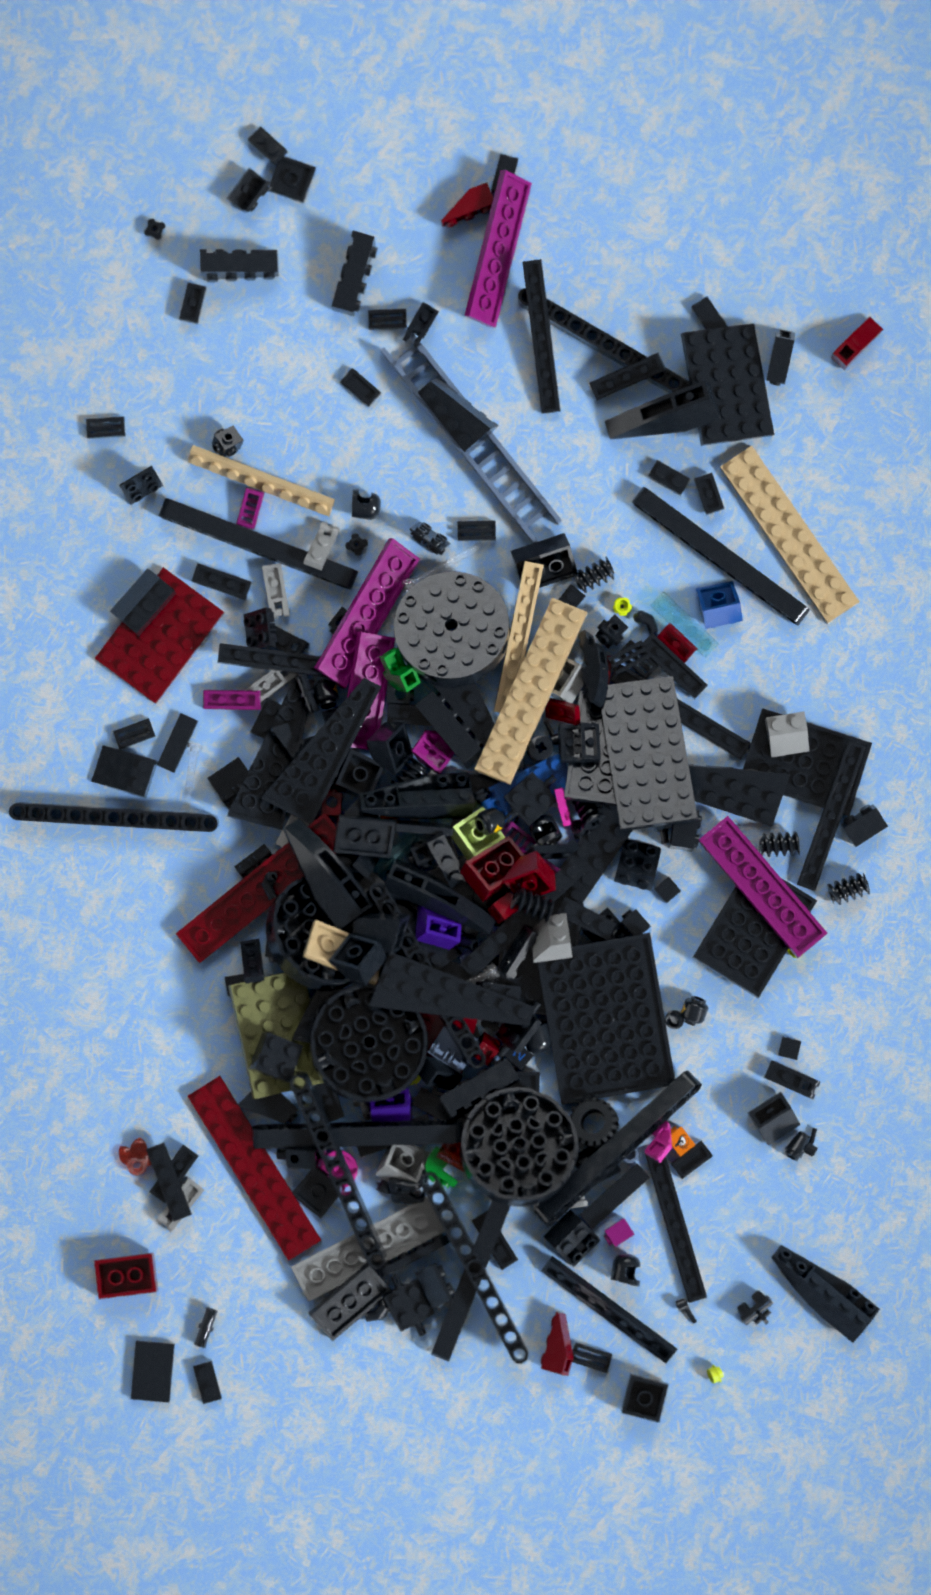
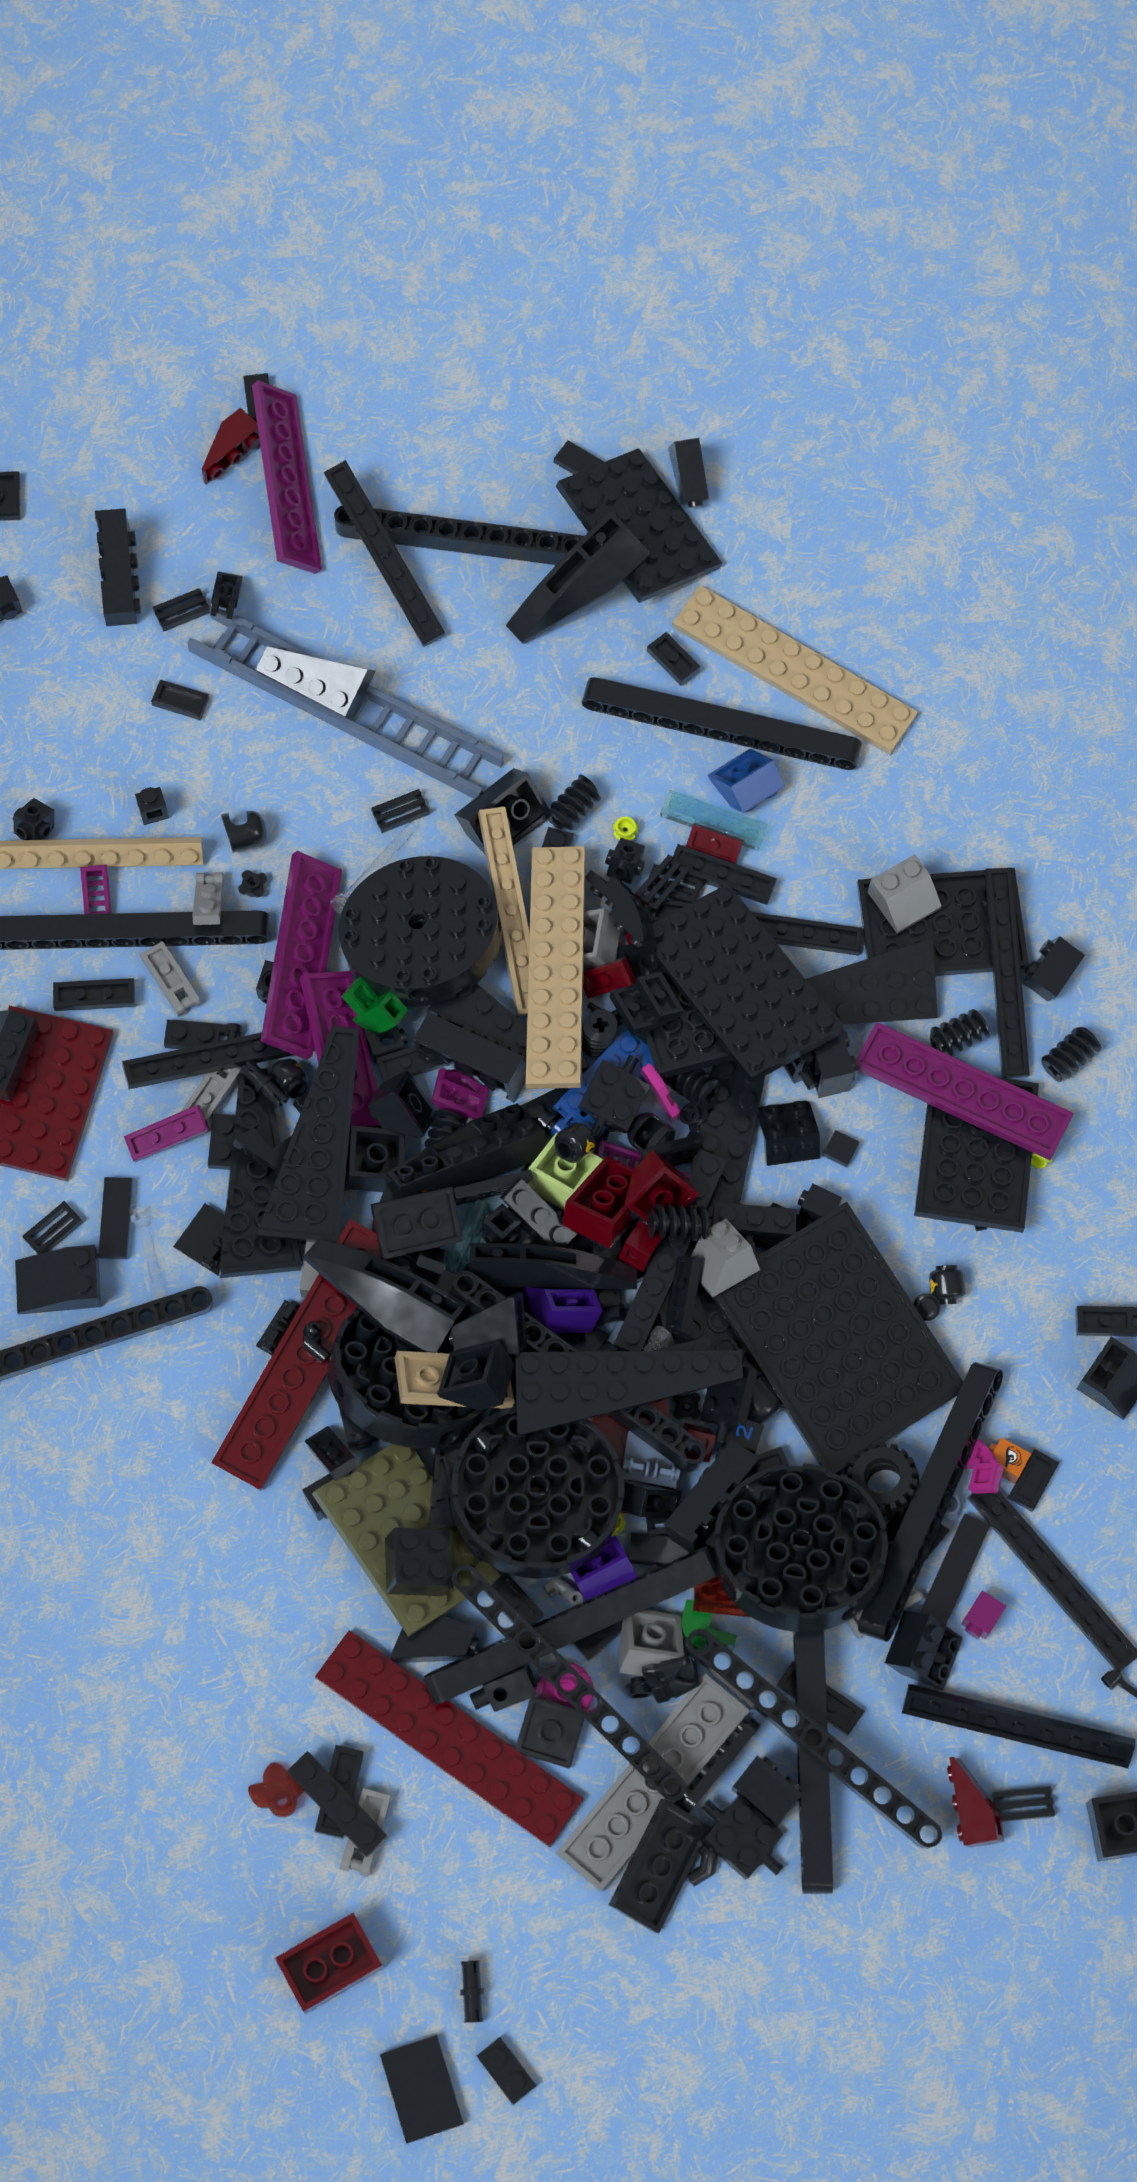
camera: 30 degrees left, 15 degrees down
(258, 628) = (168, 1028): black hinge -> none
(310, 460) = (151, 800): none -> black brick
(334, 811) = (356, 1198): dark red brick -> none
(423, 532) = (330, 836): black hinge -> none
(624, 1269) = (1012, 1661): black helmet -> none
(627, 376) = (511, 558): black tile -> none
(646, 618) = (665, 832): black arm -> none
(668, 477) = (614, 660): black plate -> none
(789, 1048) = (1091, 1284): black tile -> none
(856, 343) = (772, 427): dark red slope -> none

